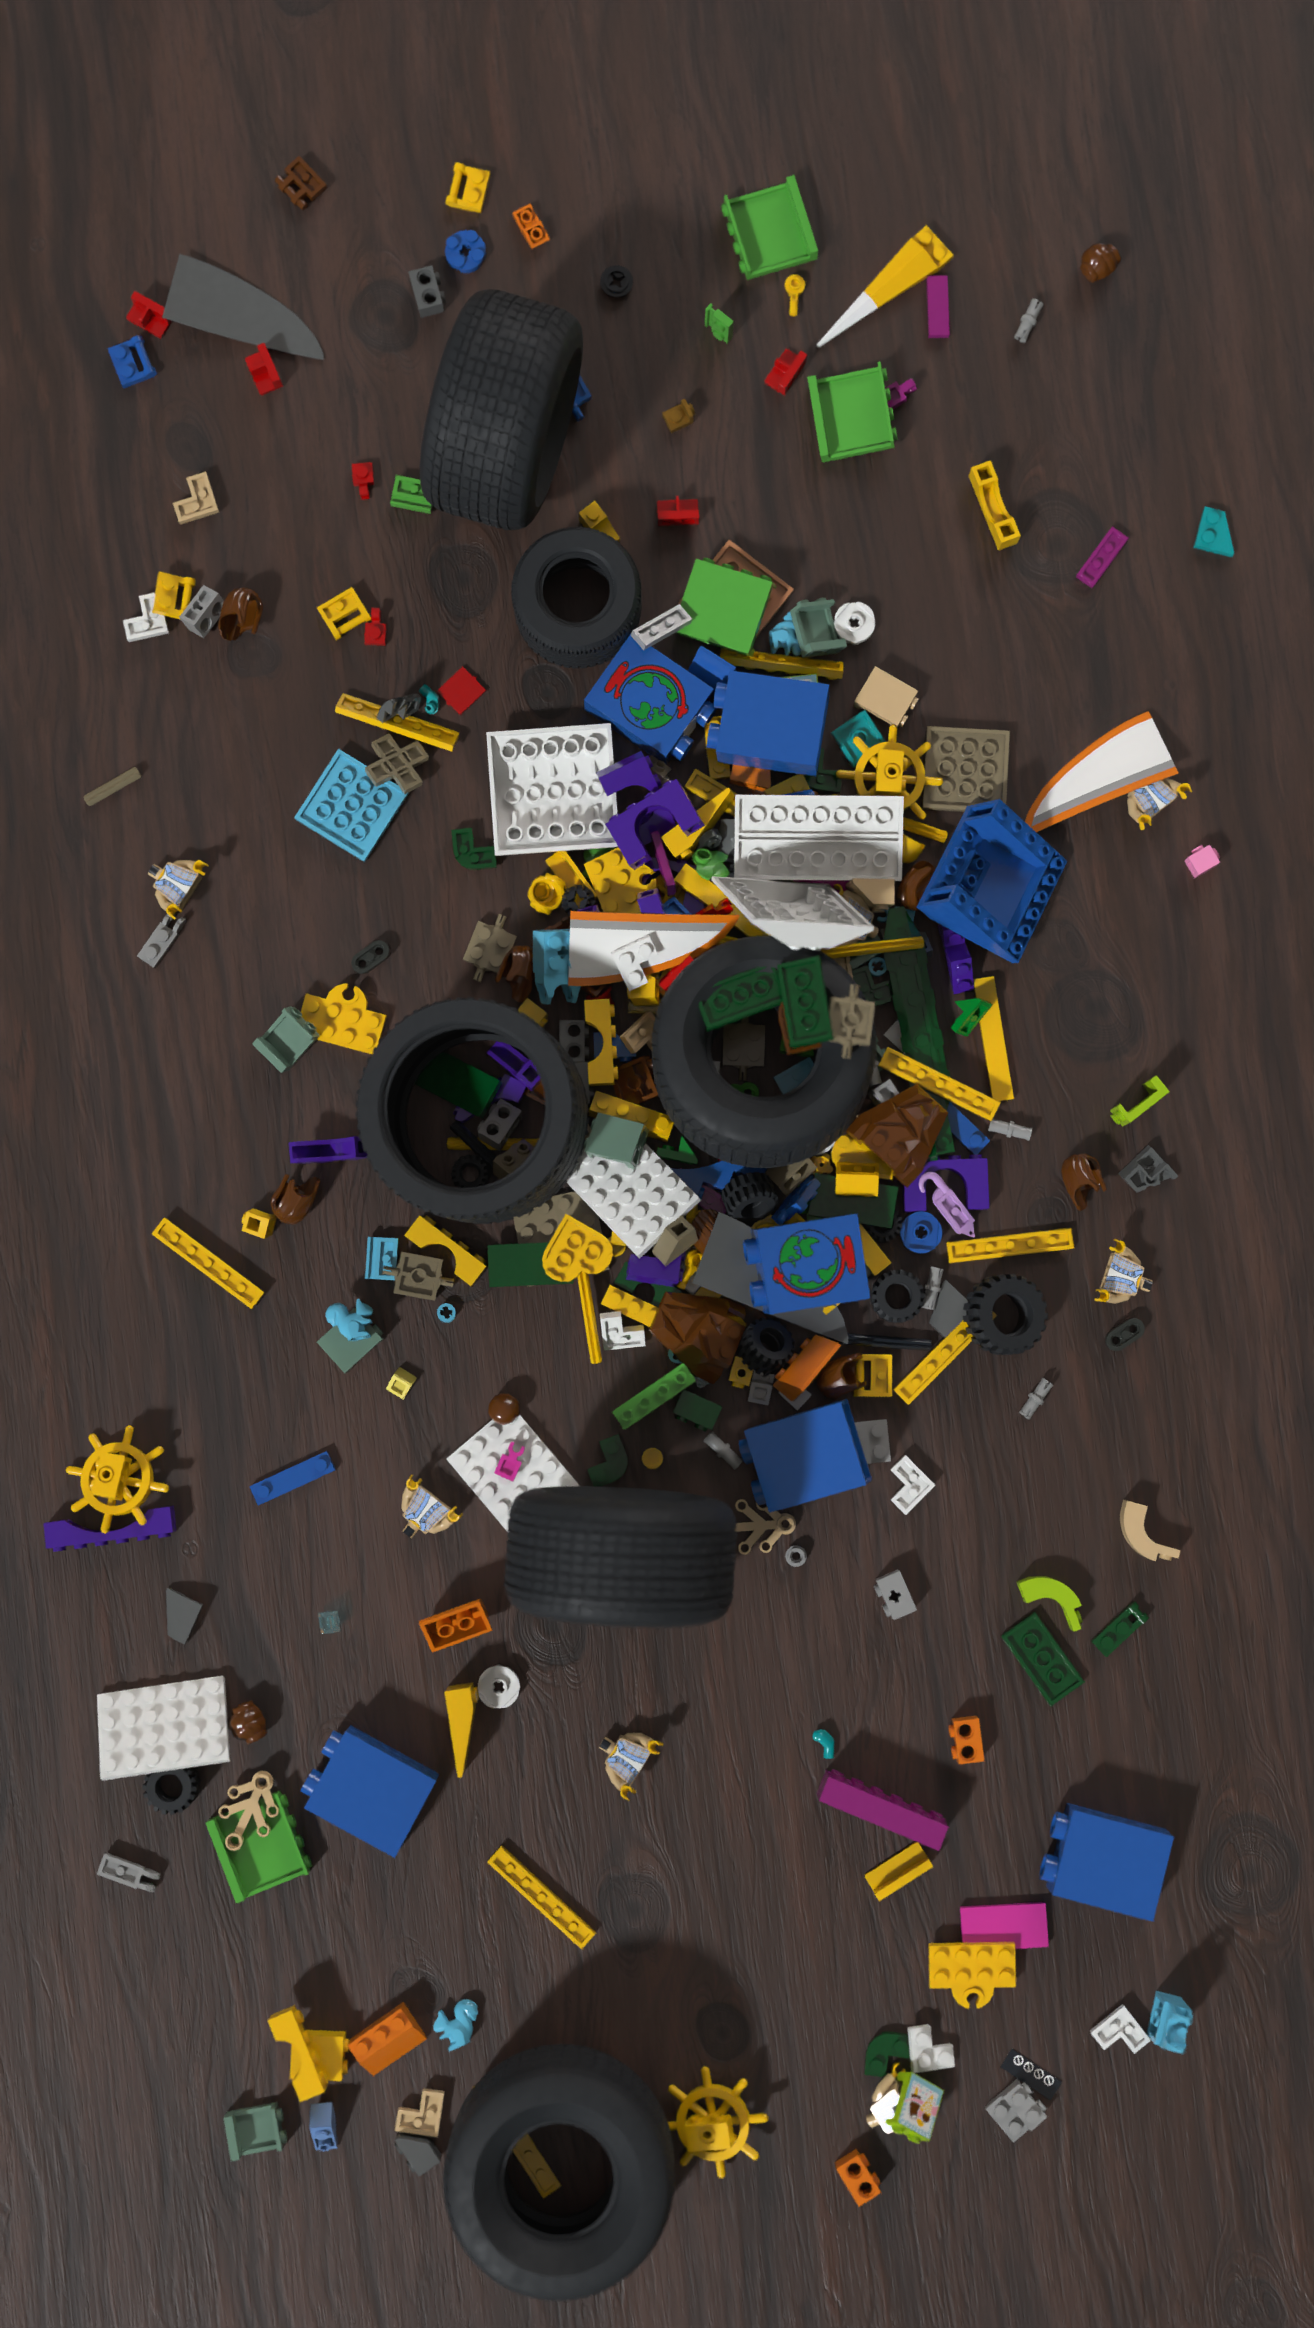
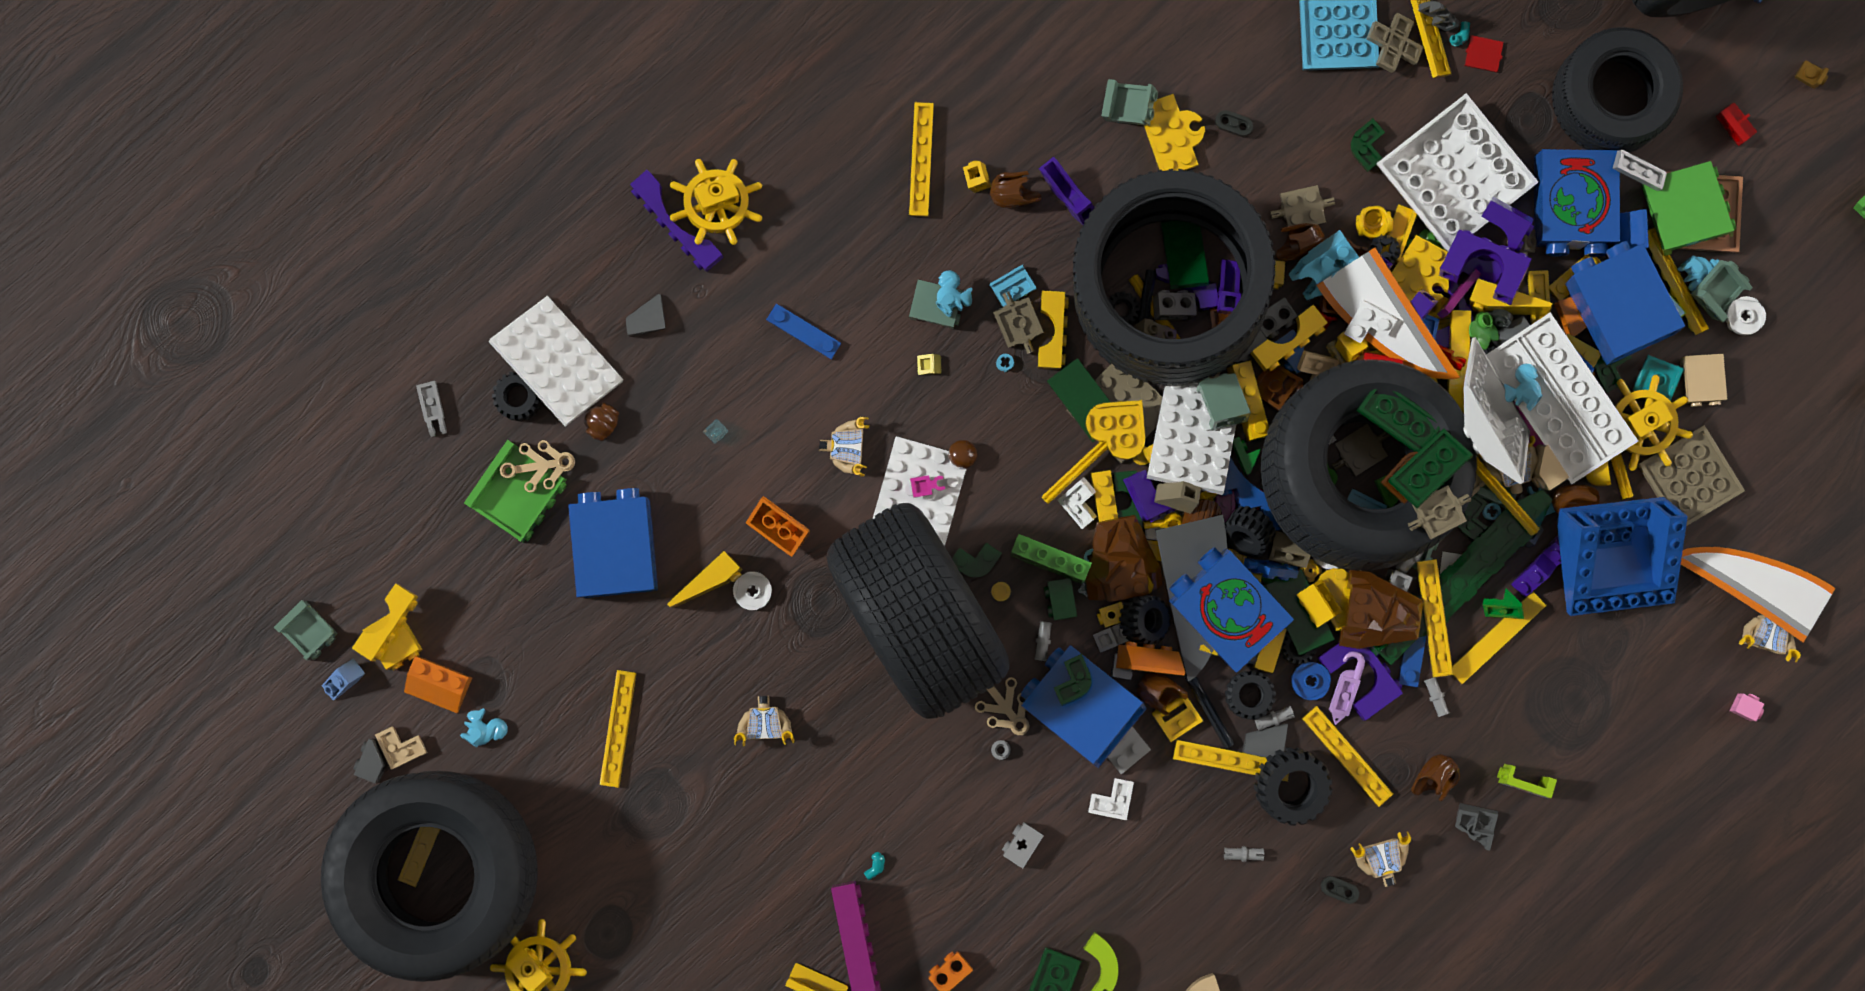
camera: 60 degrees right, 0 degrees up
(595, 518) = (1688, 65): yellow arch -> none
(785, 1448) = (1079, 683): none -> dark green plate
(791, 860) = (1528, 390): none -> medium azure animal

